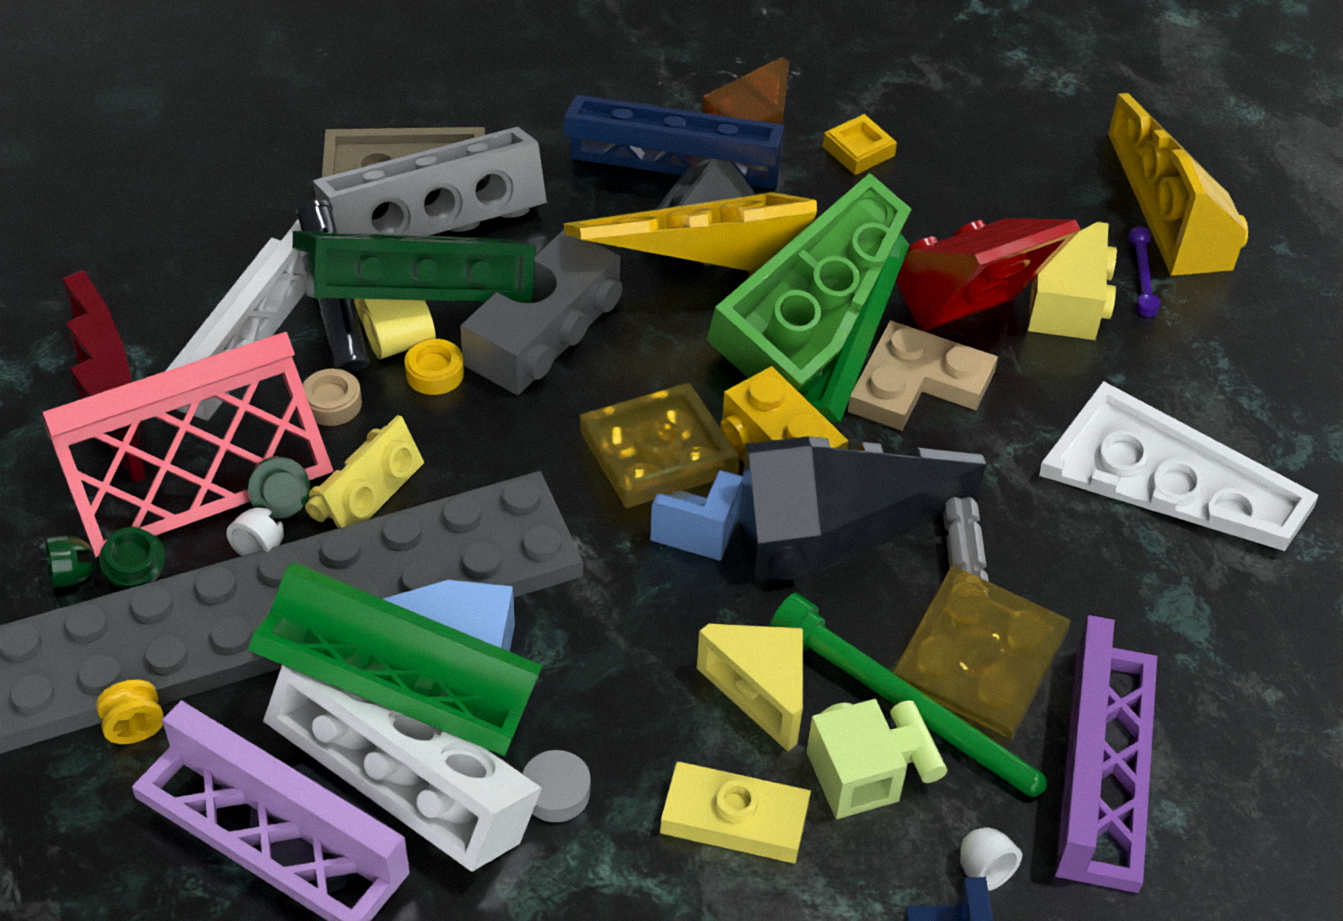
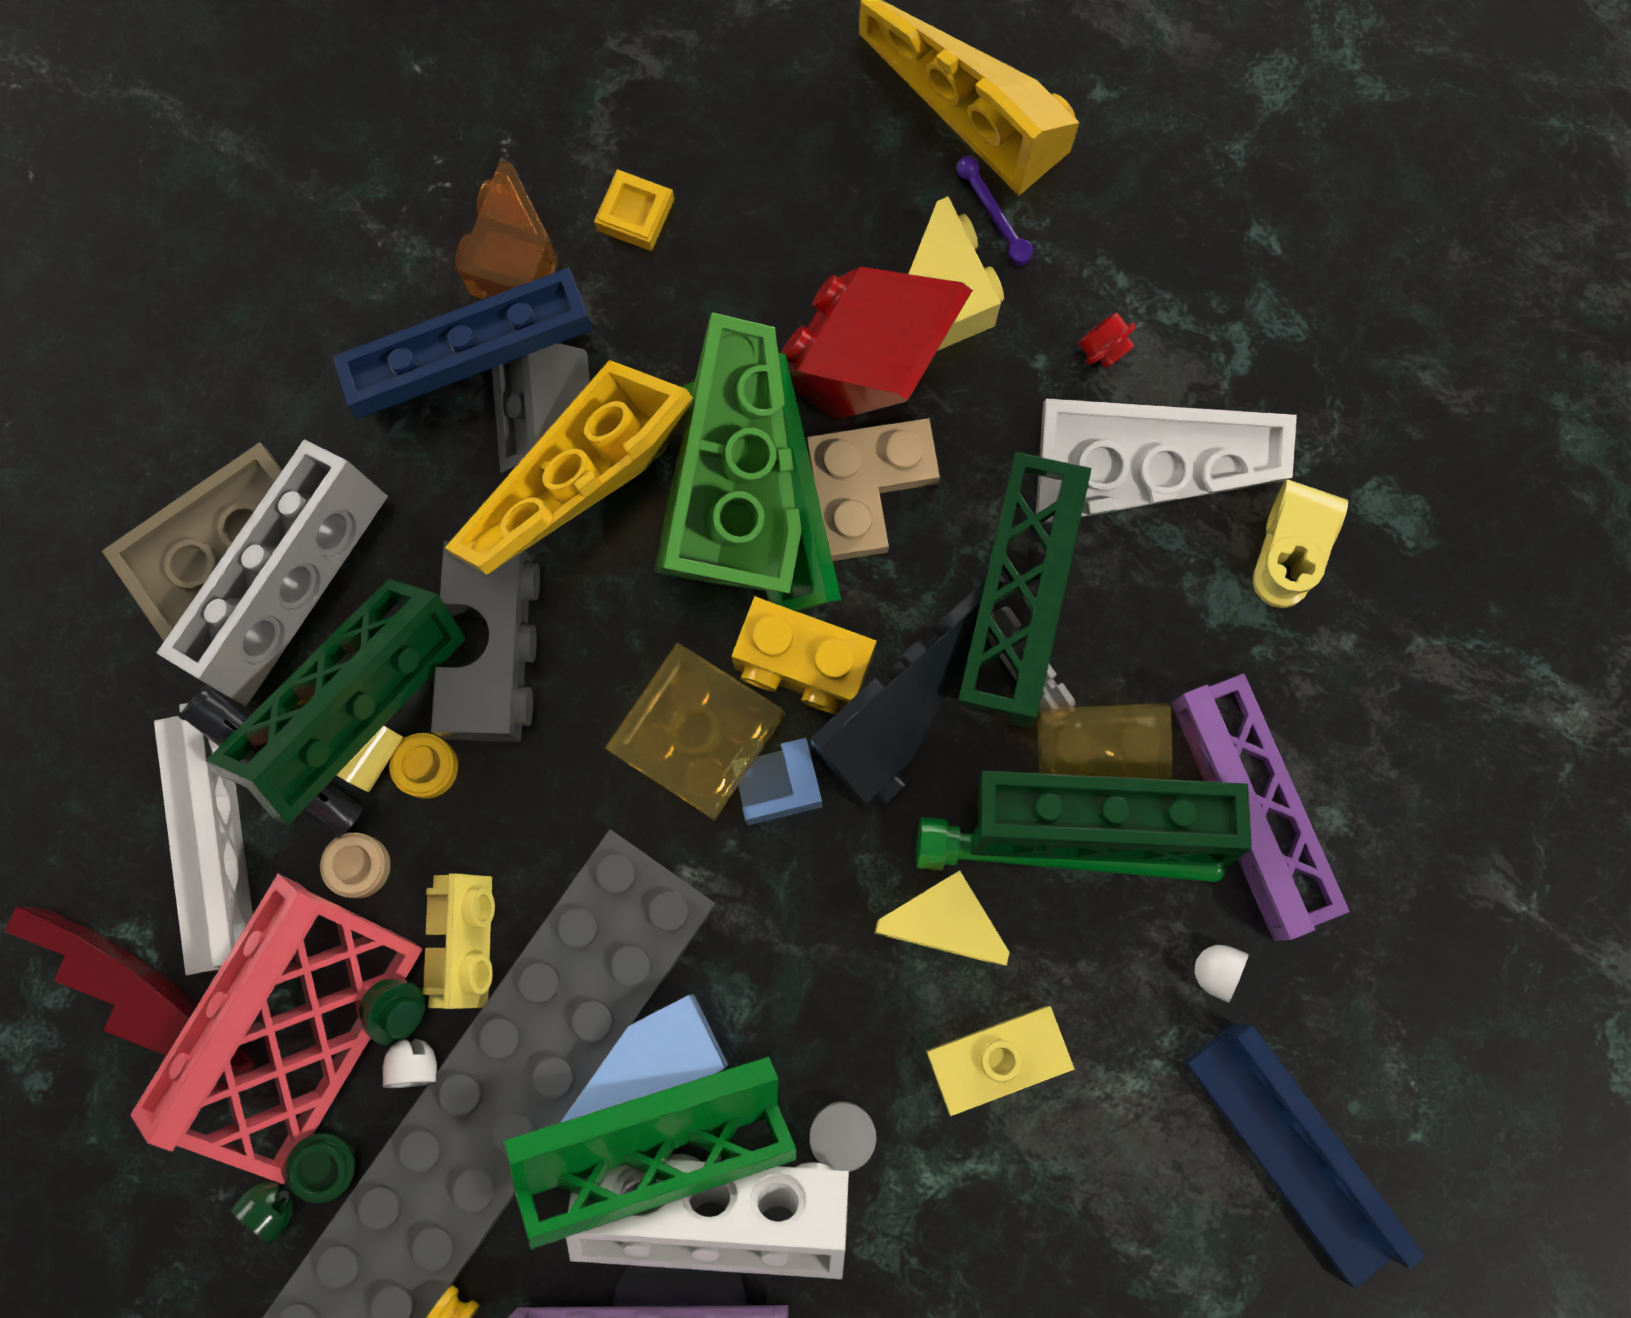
camera: 30 degrees left, 30 degrees up
(865, 761) = (1073, 948): yellowish green brick -> none
(960, 654) = (1111, 819): none -> dark green fence
(1026, 477) = (1046, 604): none -> dark green fence
(1183, 381) = (1108, 341): none -> red plate
(1265, 589) = (1300, 535): none -> light yellow piece

